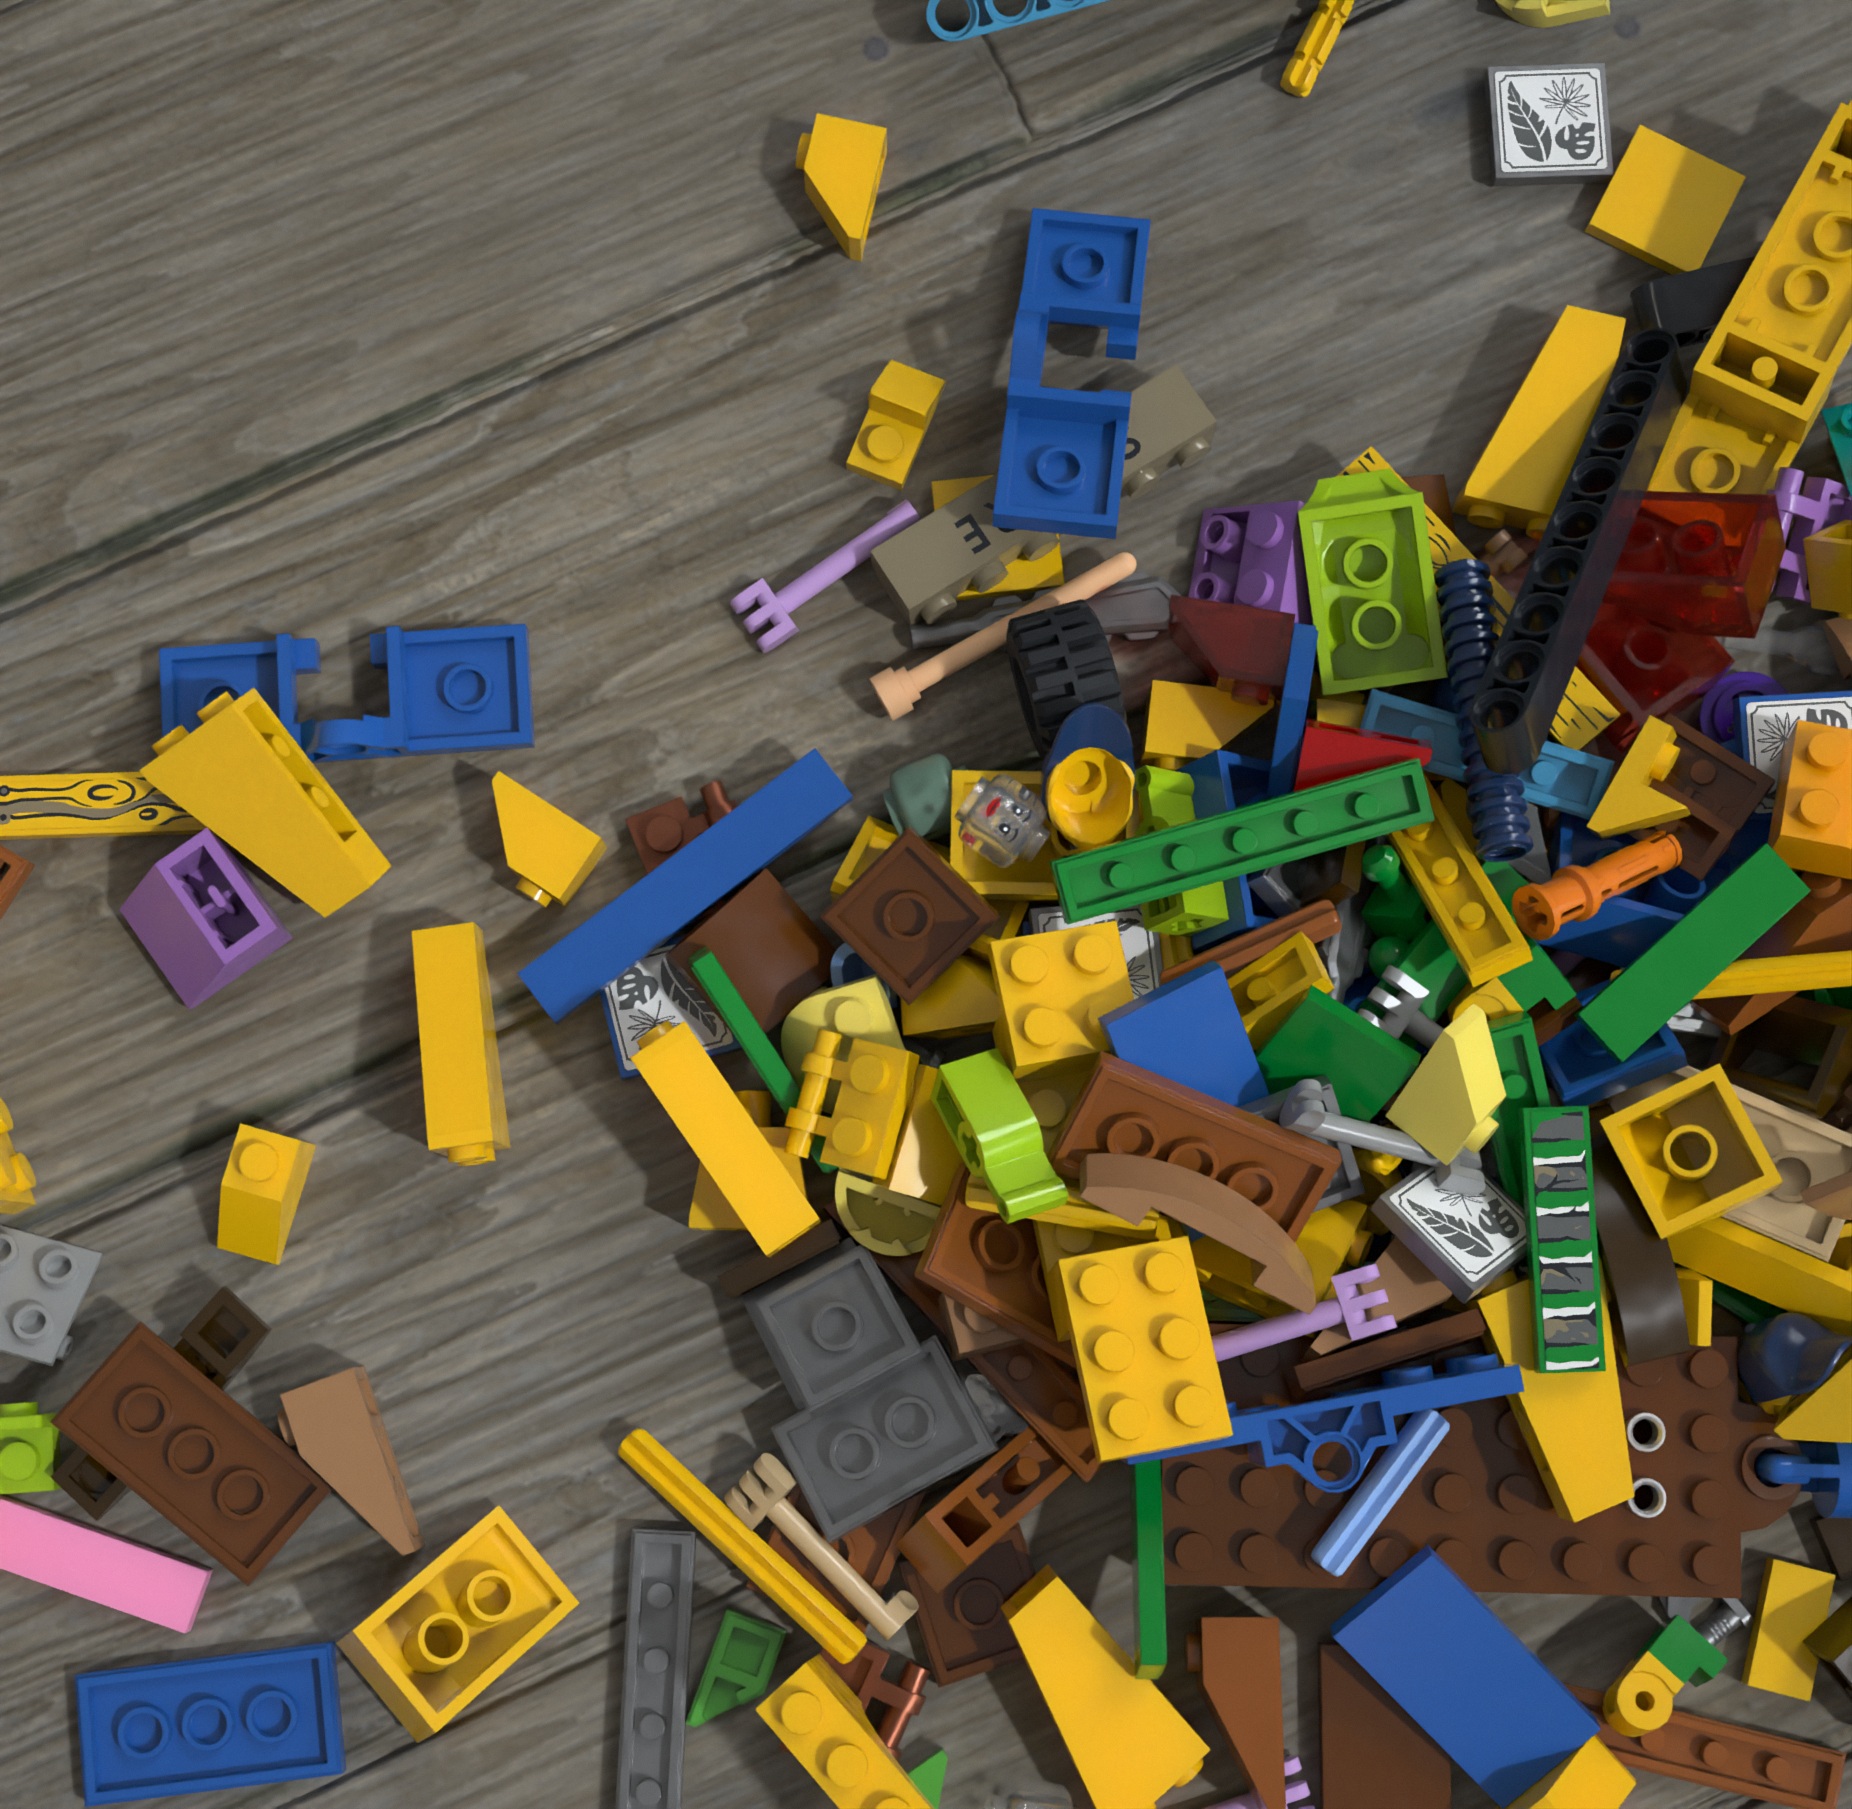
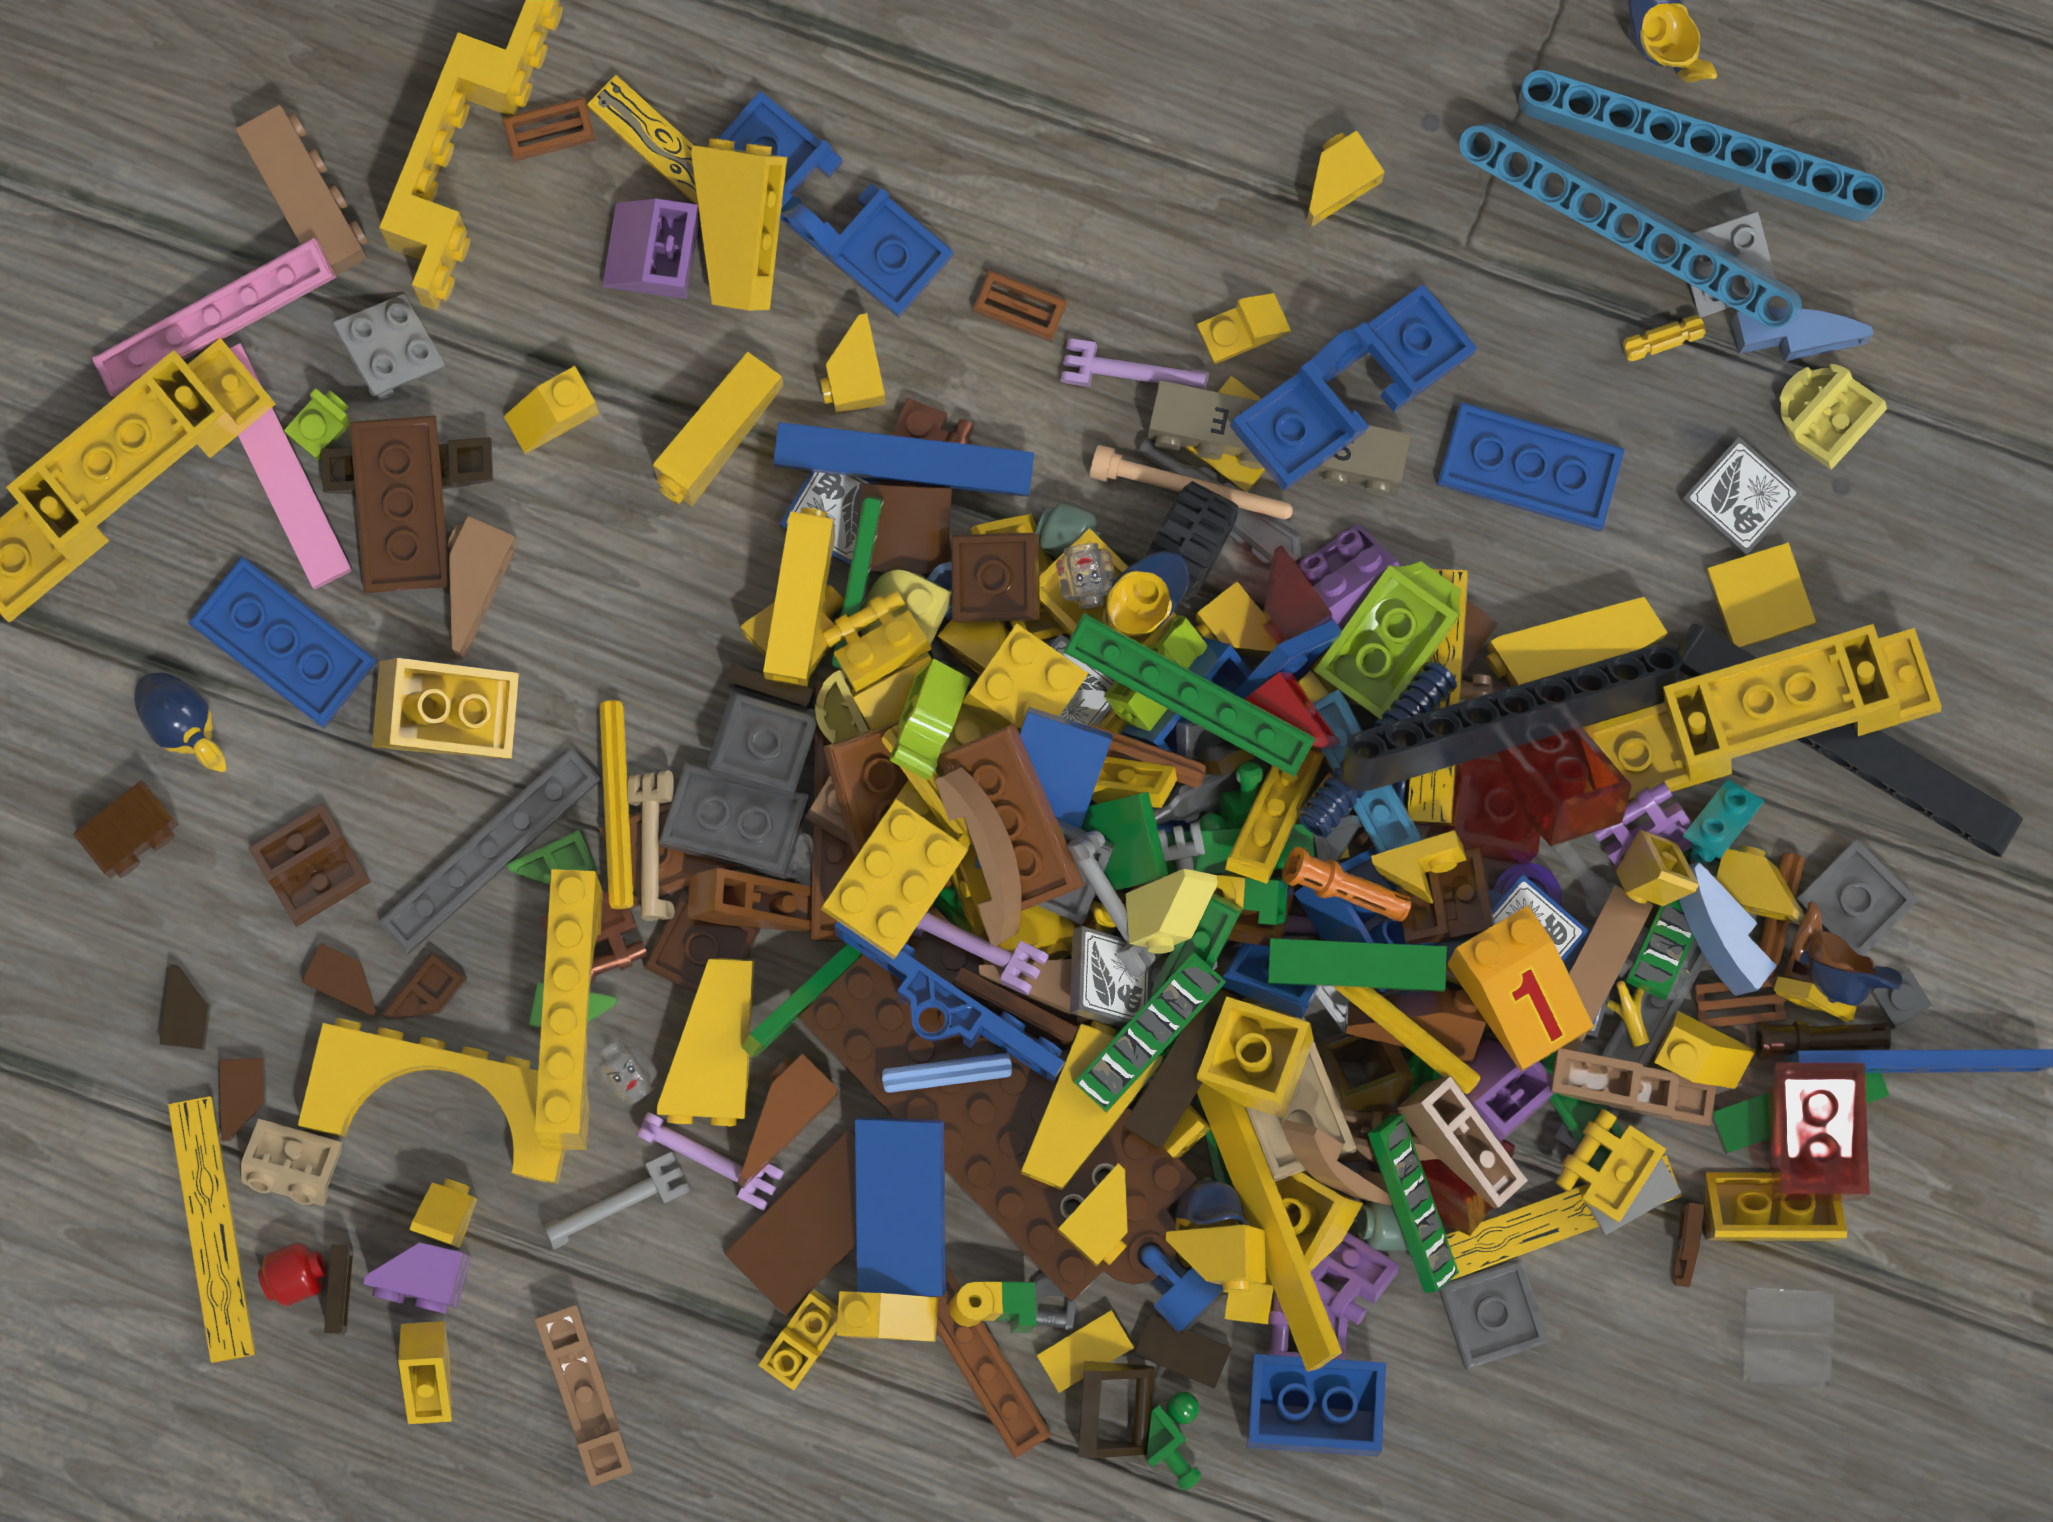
camera: 45 degrees right, 0 degrees up
(654, 637) = (1014, 321): none -> dark orange tile
(1316, 290) = (1531, 466): none -> blue tile
(1696, 1486) = (1100, 1220): none -> yellow slope

